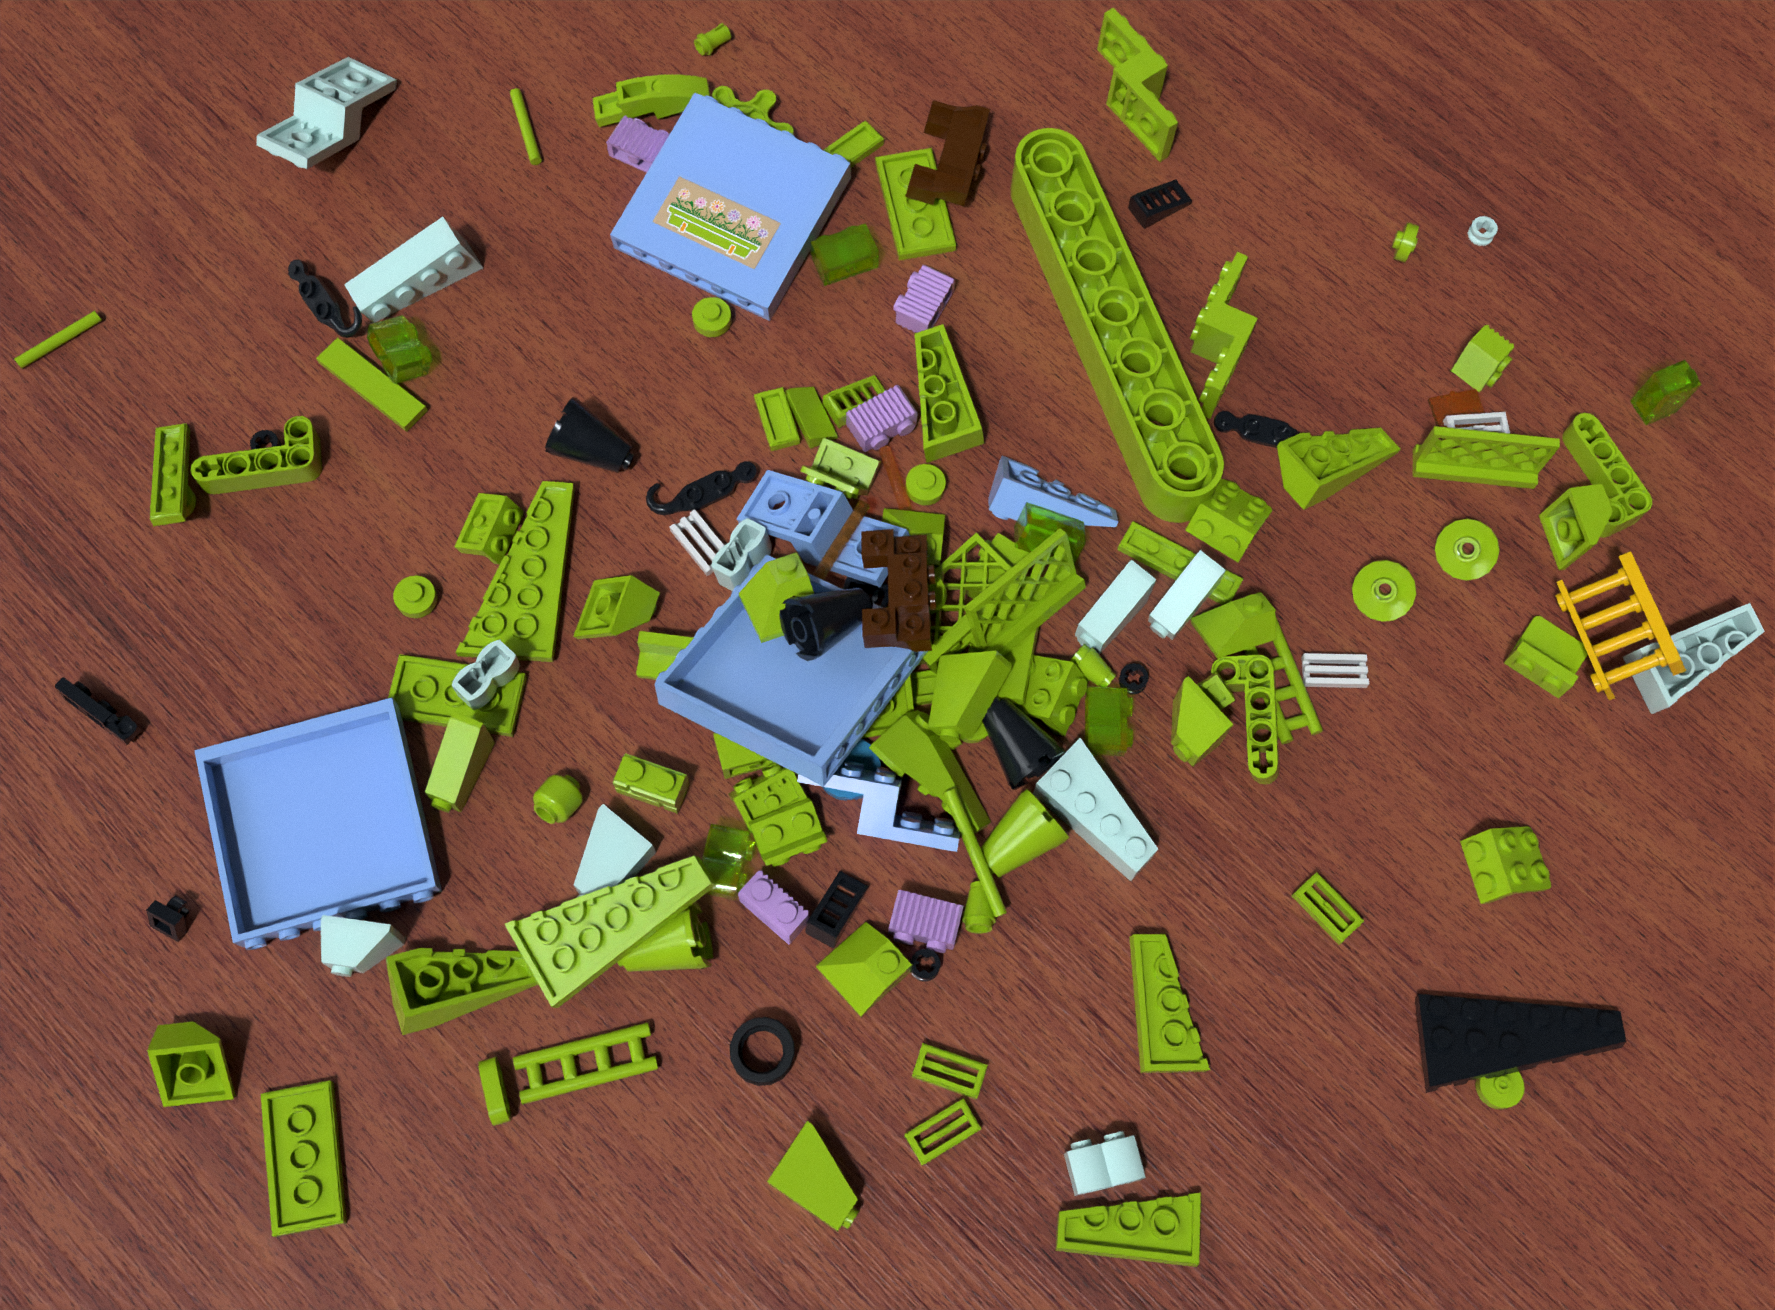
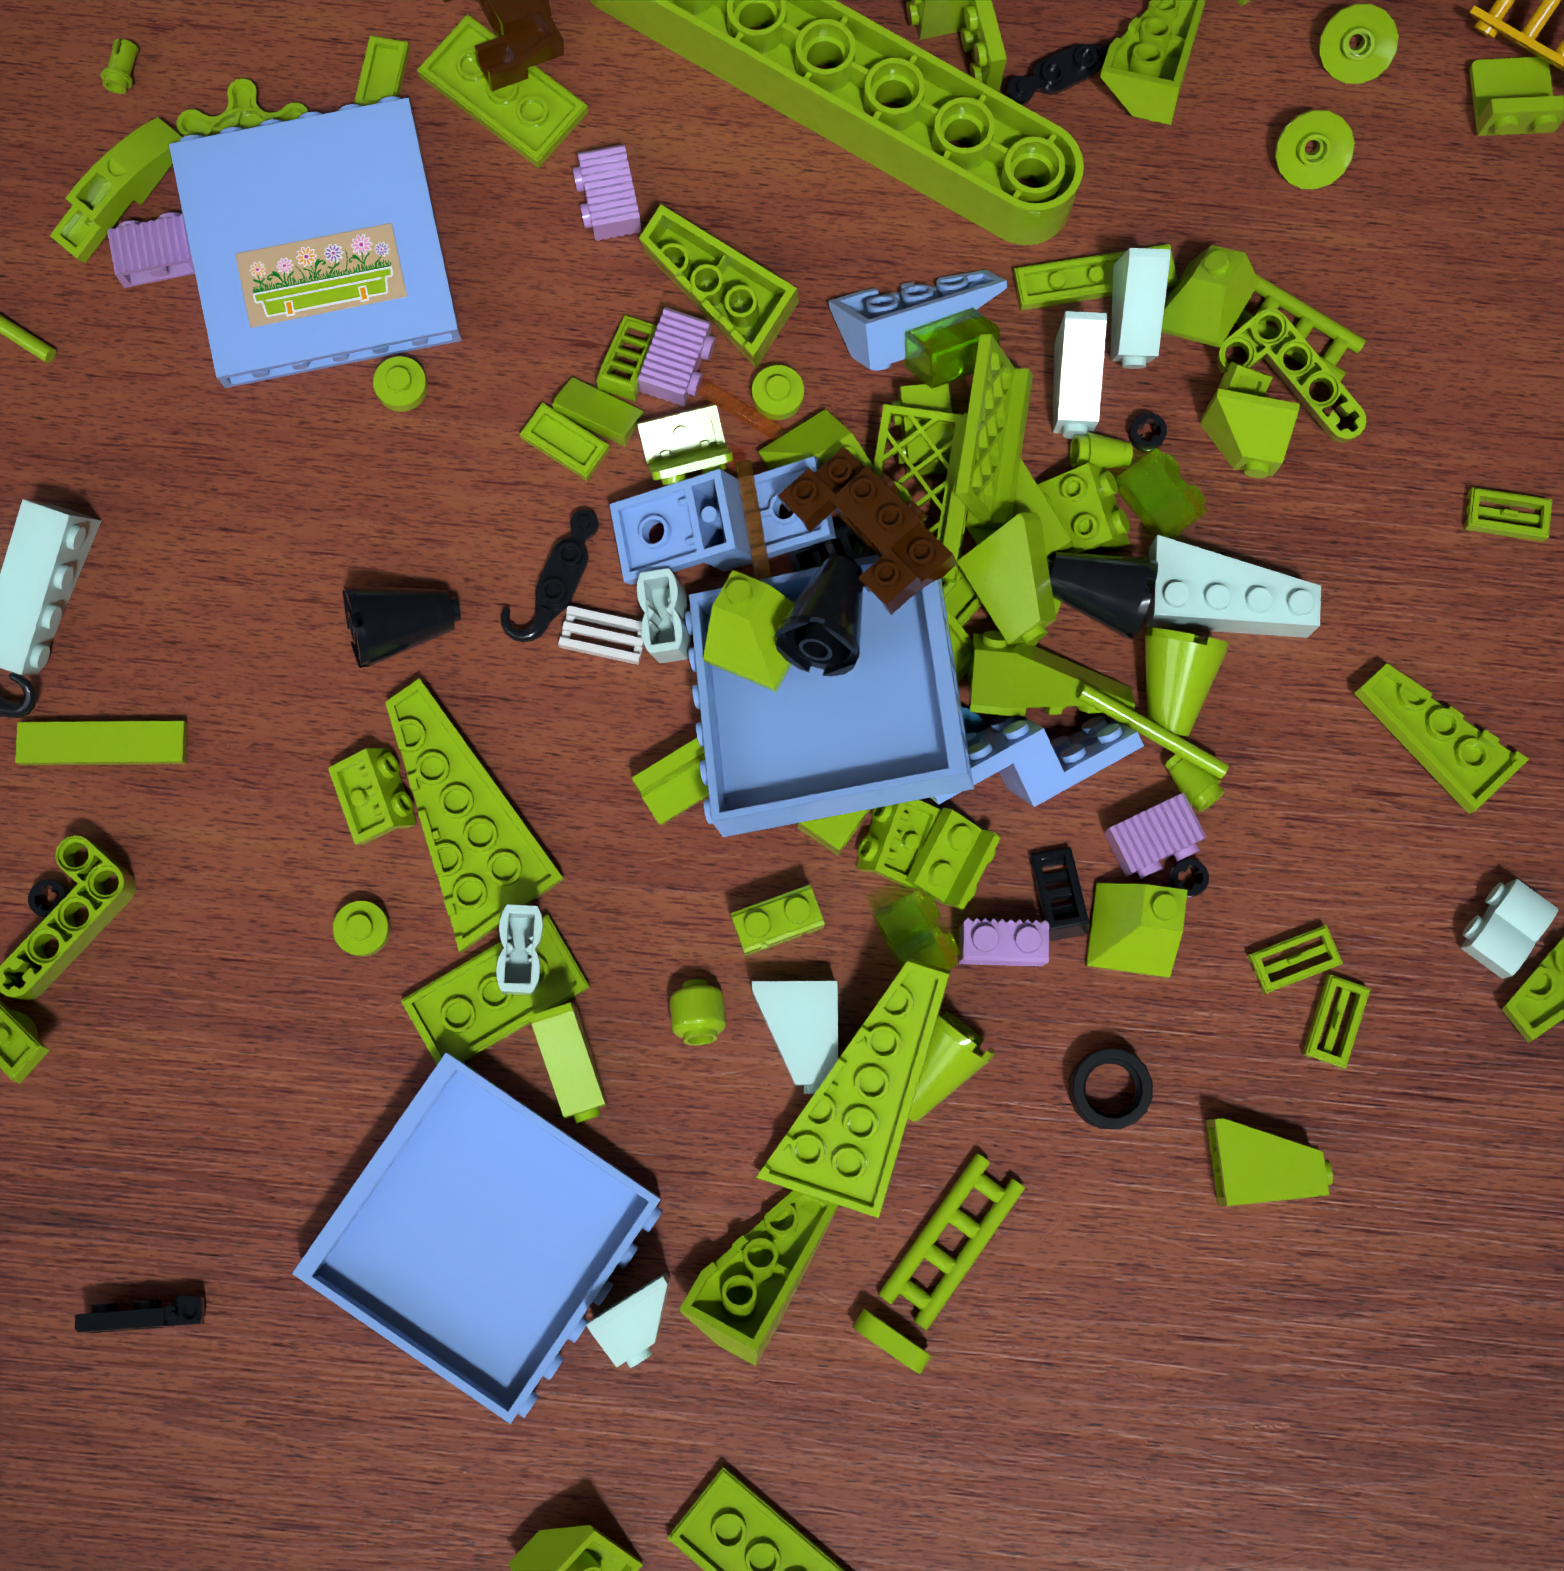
camera: 40 degrees left, 10 degrees up
(169, 918) = (418, 1454): black tile -> none
(398, 349) = (99, 682): clear neon green brick -> none
(616, 607) = (581, 775): lime slope -> none
(844, 254) = (480, 205): clear neon green brick -> none
(1229, 519) = (1112, 193): lime bracket -> none
(1316, 658) = (1352, 250): white tile -> none

